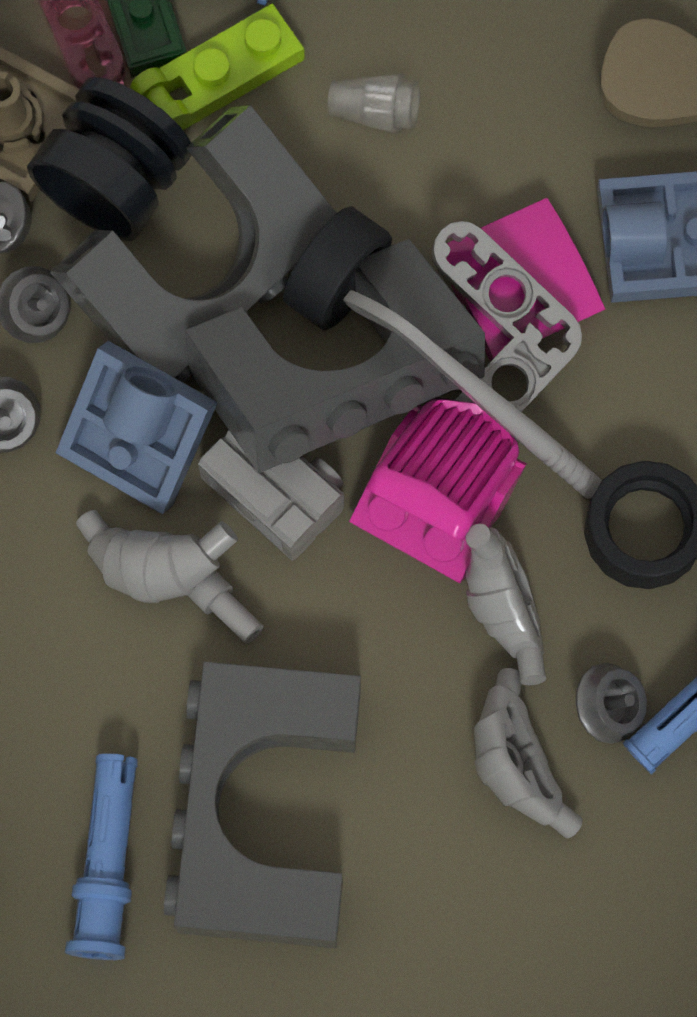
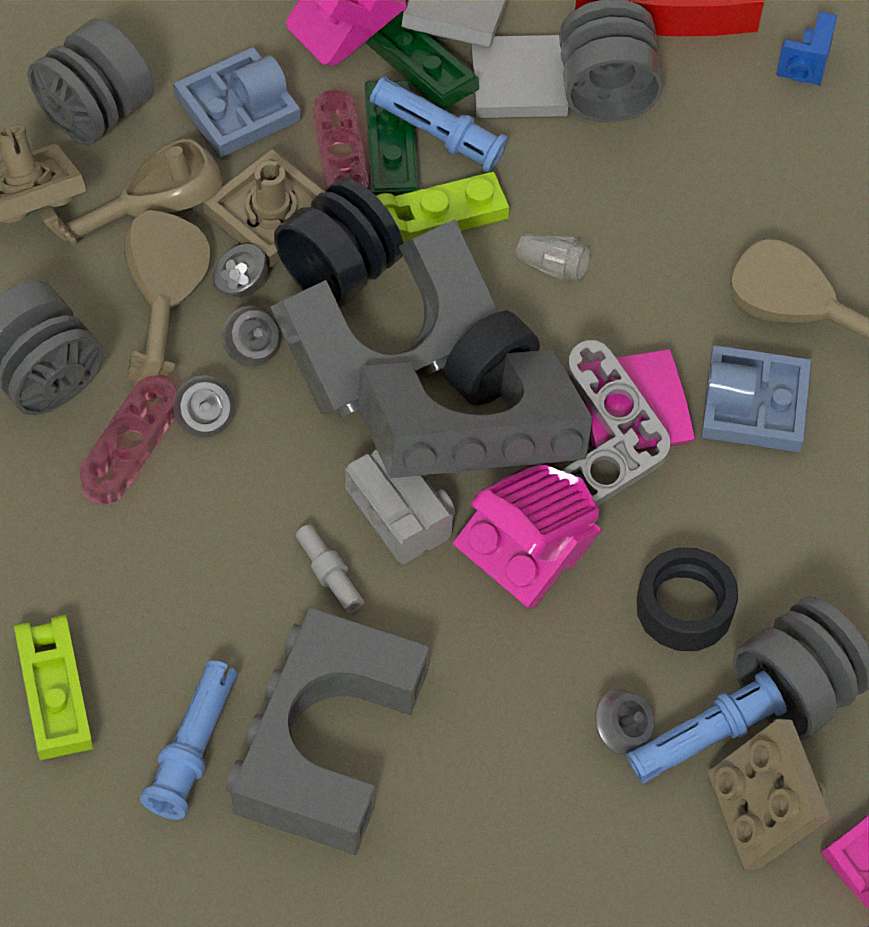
camera: 10 degrees right, 15 degrees down
(135, 427) = (304, 433): sand blue plate -> none
(153, 563) = (290, 533): light grey piece -> none
(496, 406) = (579, 463): light grey piece -> none
(503, 601) = (558, 620): light grey piece -> none
(513, 759) = (535, 744): light grey piece -> none

